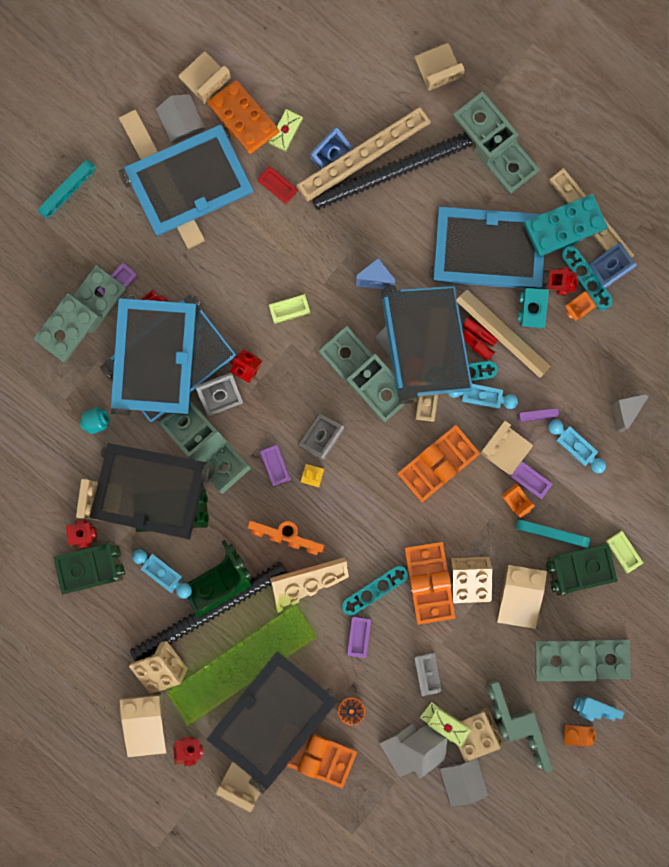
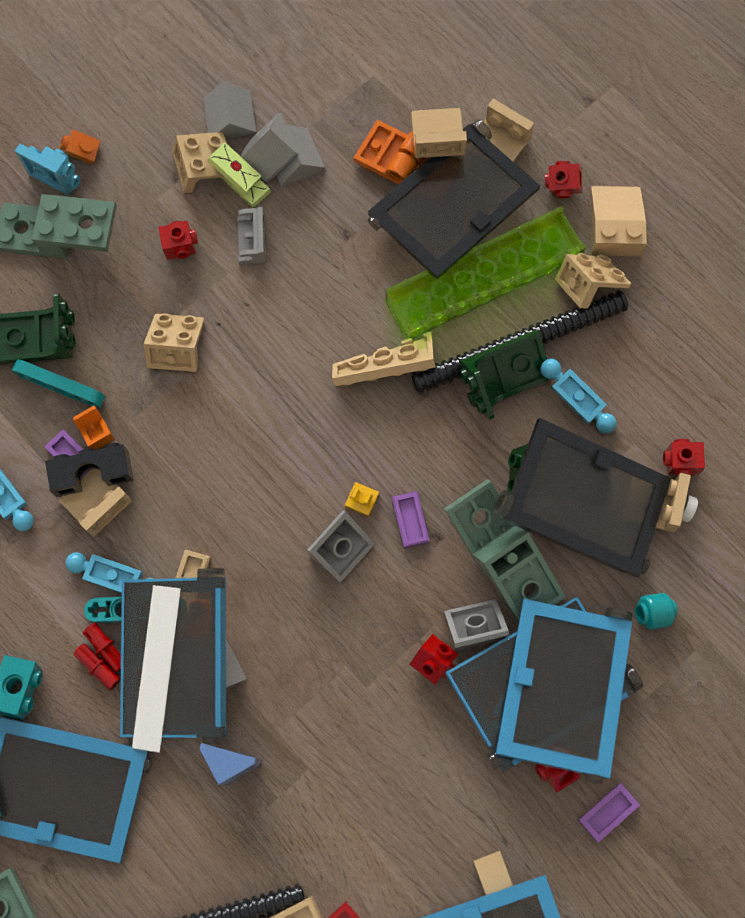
camera: 165 degrees left, 10 degrees down
(74, 498) = (690, 508): none -> white tile
(80, 314) = (667, 768): sand green bracket -> none
(89, 568) = (674, 414): dark green bracket -> none
(277, 536) = (417, 420): orange plate -> none
(289, 308) = (361, 738): yellowish green tile -> none
(291, 774) = (438, 133): none -> tan bracket
(351, 711) = (353, 205): orange wheel -> none
(359, 637) = (330, 290): medium lavender tile -> none
(363, 372) = (270, 625): sand green bracket -> none
(376, 593) = (299, 339): teal beam -> none
(430, 583) = (228, 343): orange plate -> none
(436, 333) = (156, 668): none -> white sticker
(438, 463) = (188, 492): orange plate -> none
(490, 661) = (178, 240): none -> red brick
(503, 333) = (66, 659): tan tile -> none
(518, 726) = (149, 159): sand green bracket -> none
(521, 596) = (113, 315): tan slope -> none
(530, 463) = (67, 471): none -> black arch
(538, 415) = (43, 538): medium lavender tile -> none

